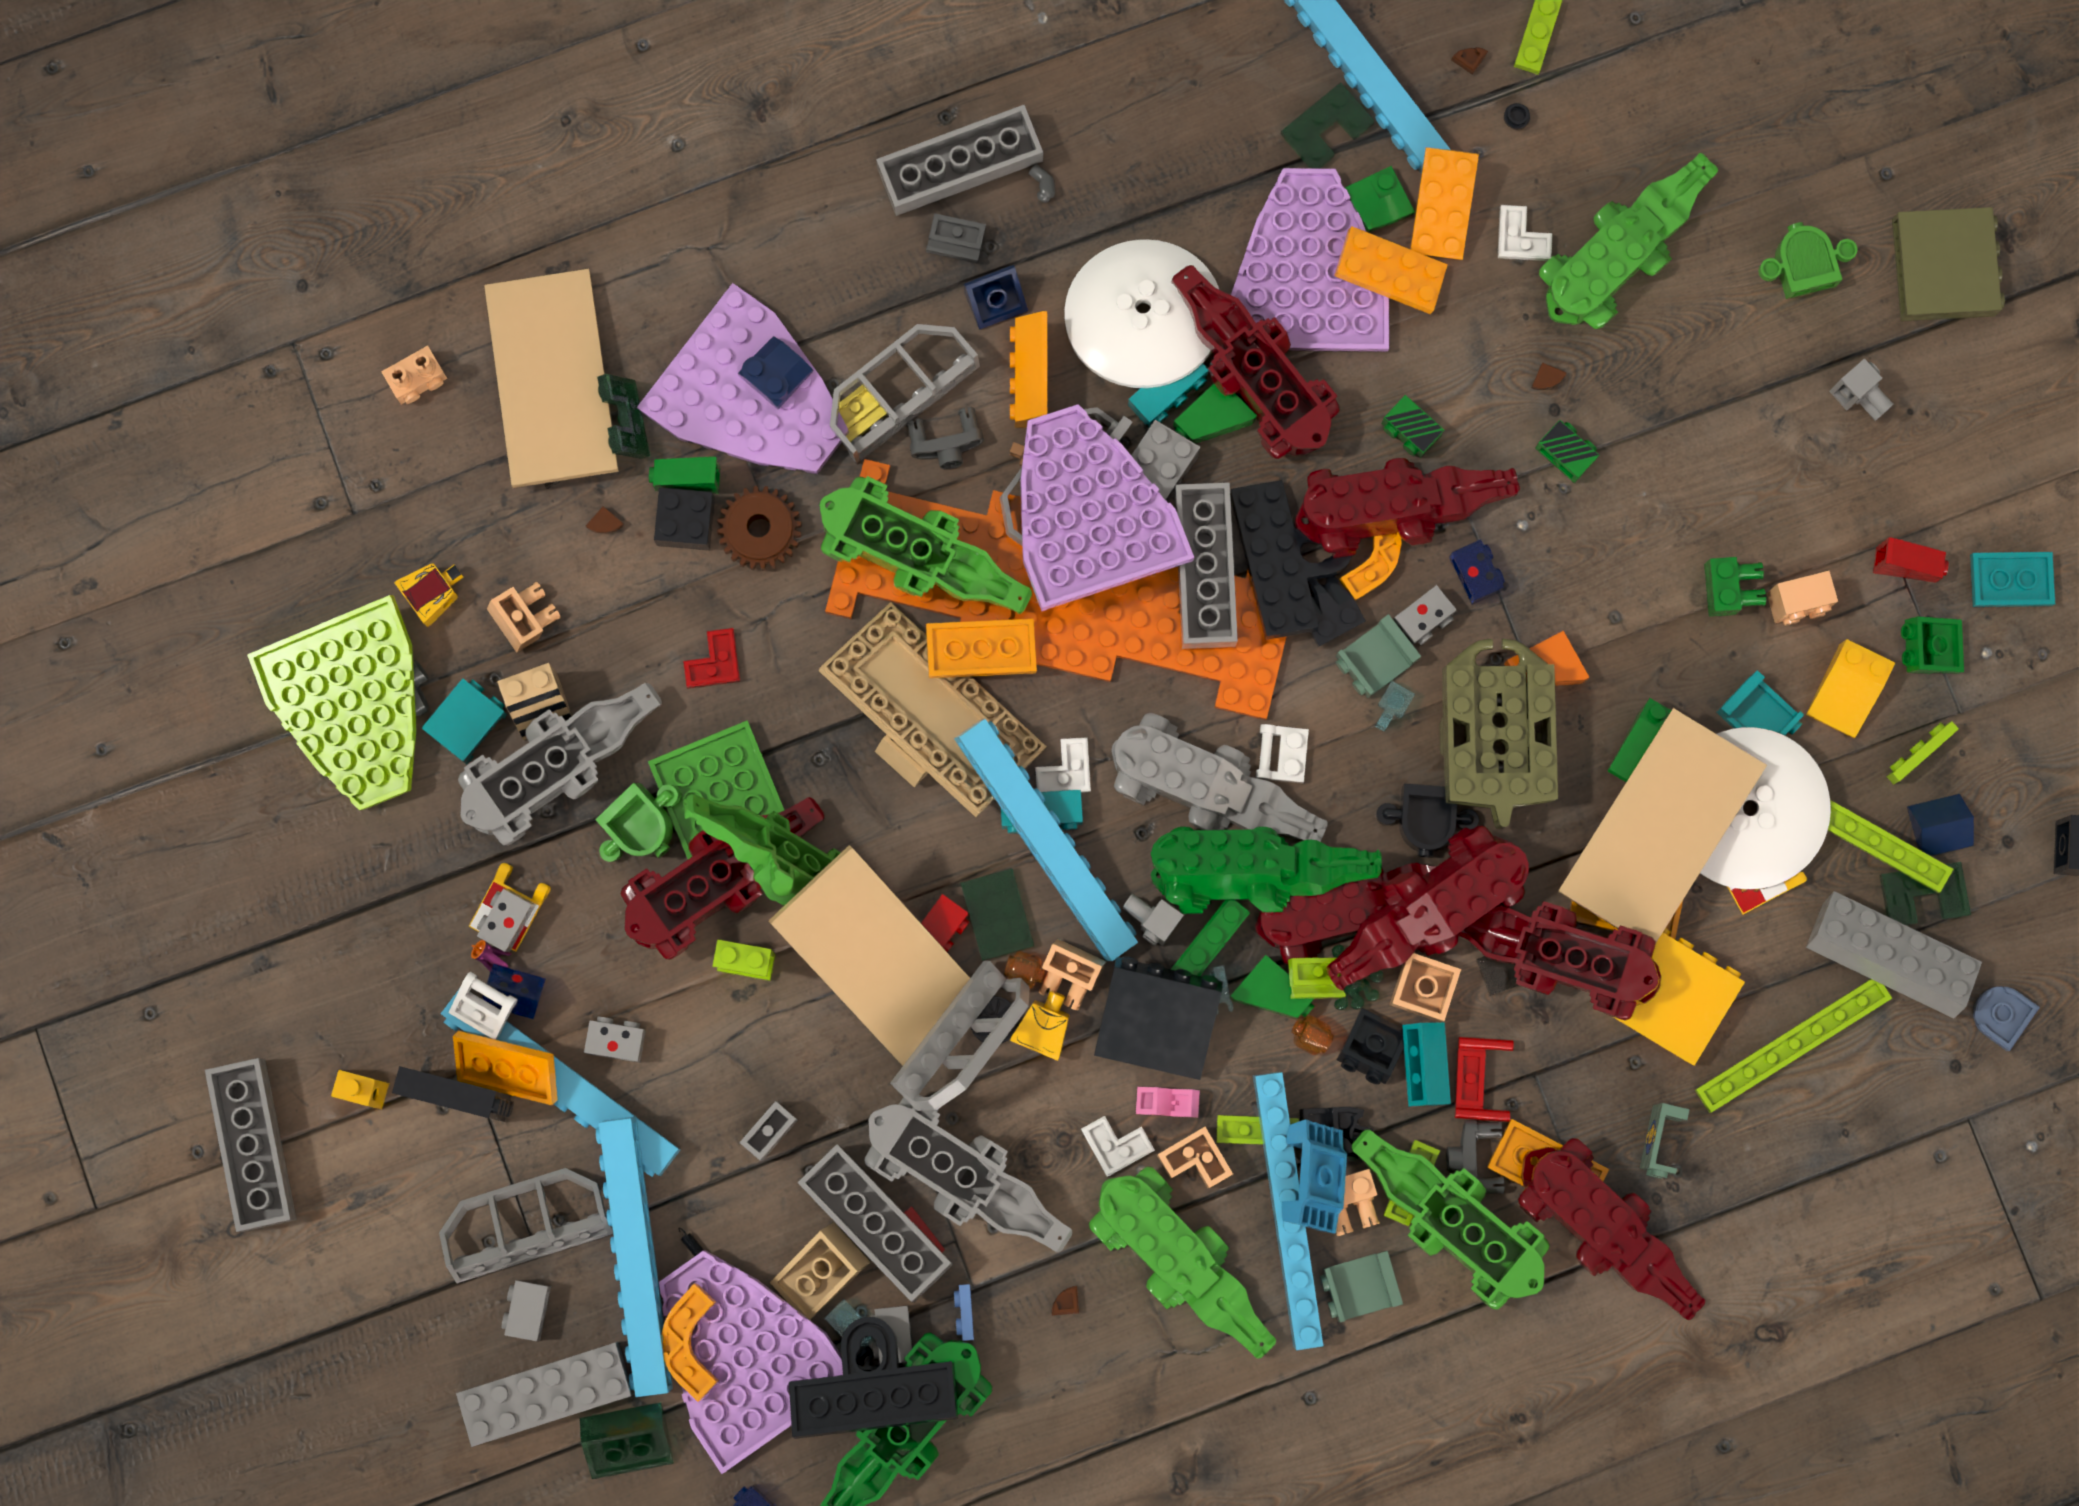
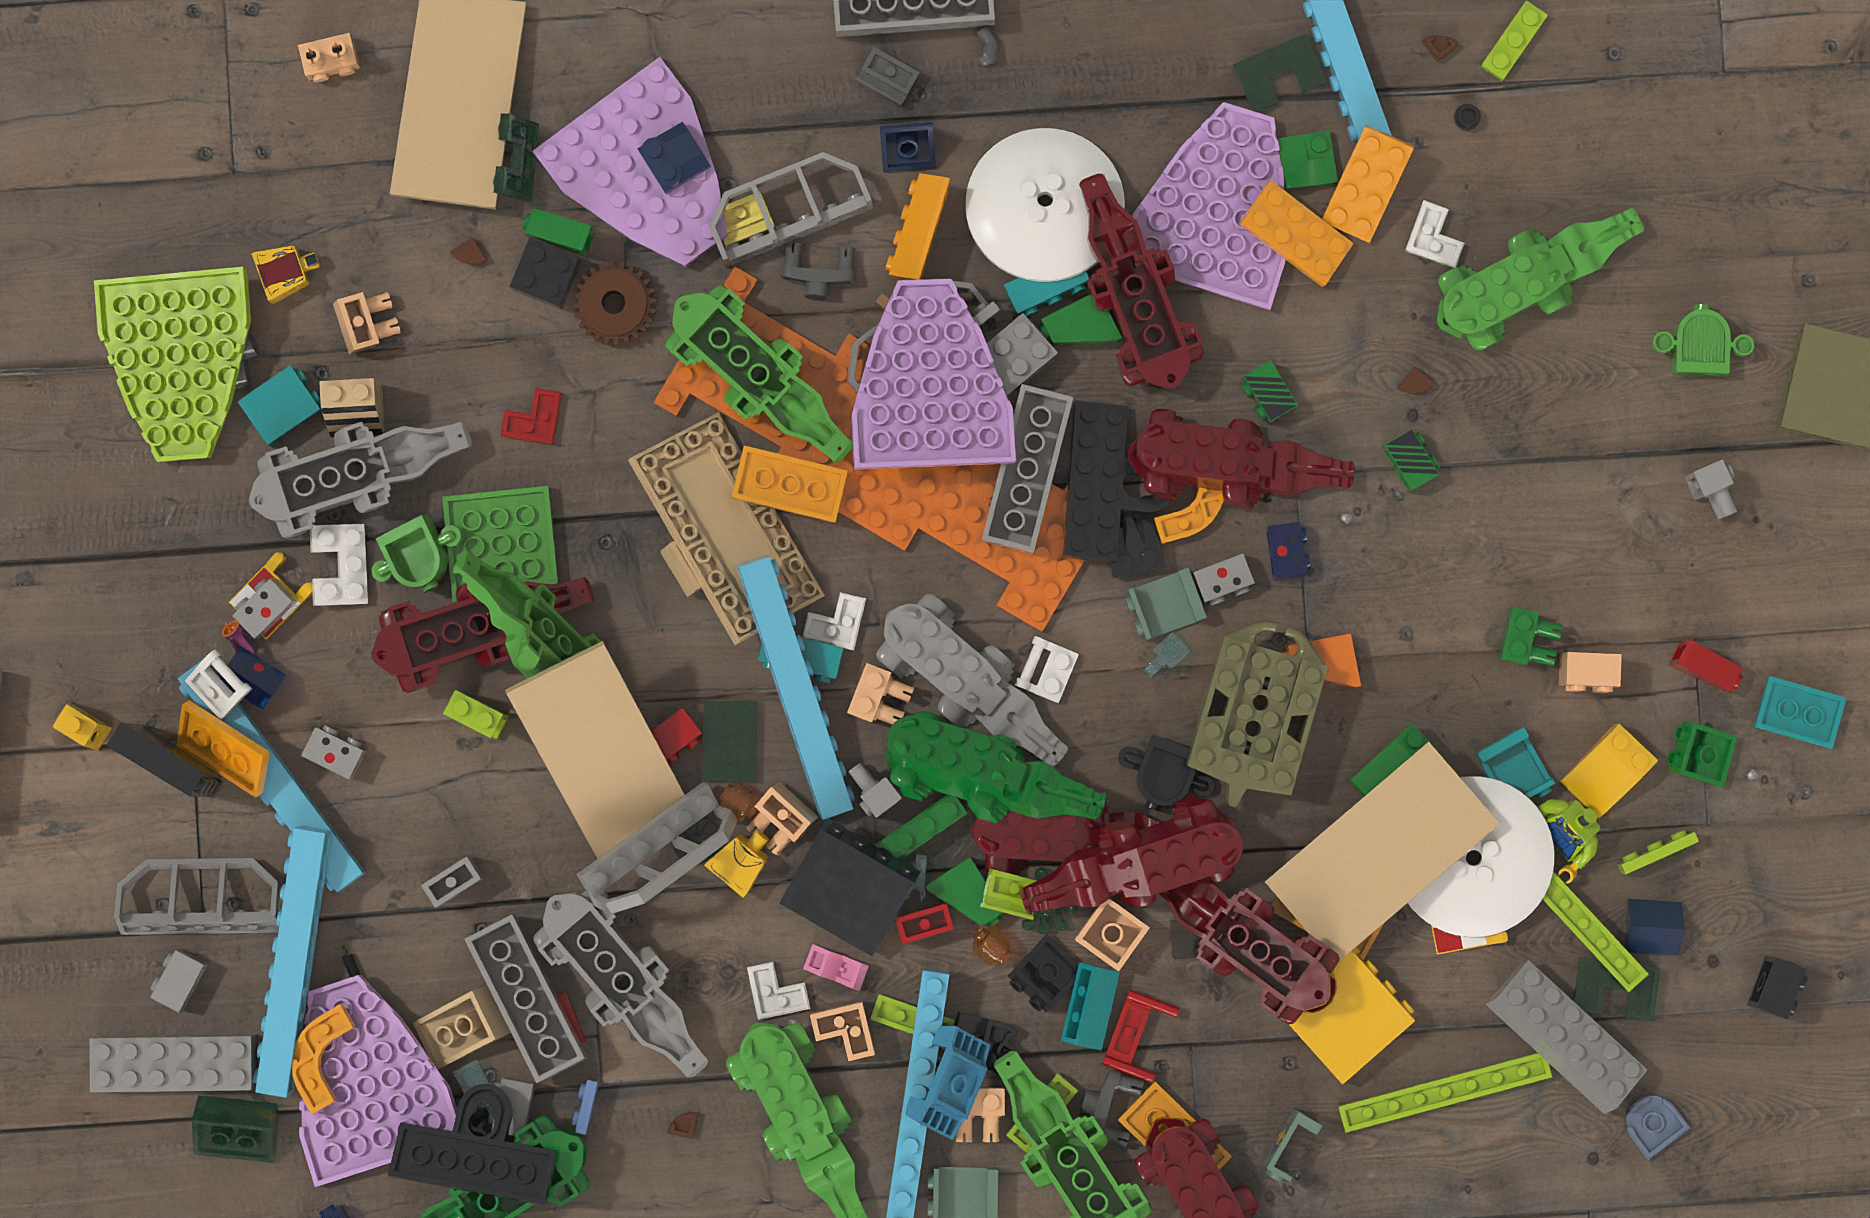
camera: 20 degrees right, 5 degrees up
(583, 870) = (351, 584): none -> white plate
(1119, 832) = (869, 693): none -> light nougat brick
(1241, 1032) = (924, 923): none -> red brick
(1836, 755) = (1572, 832): none -> lime torso

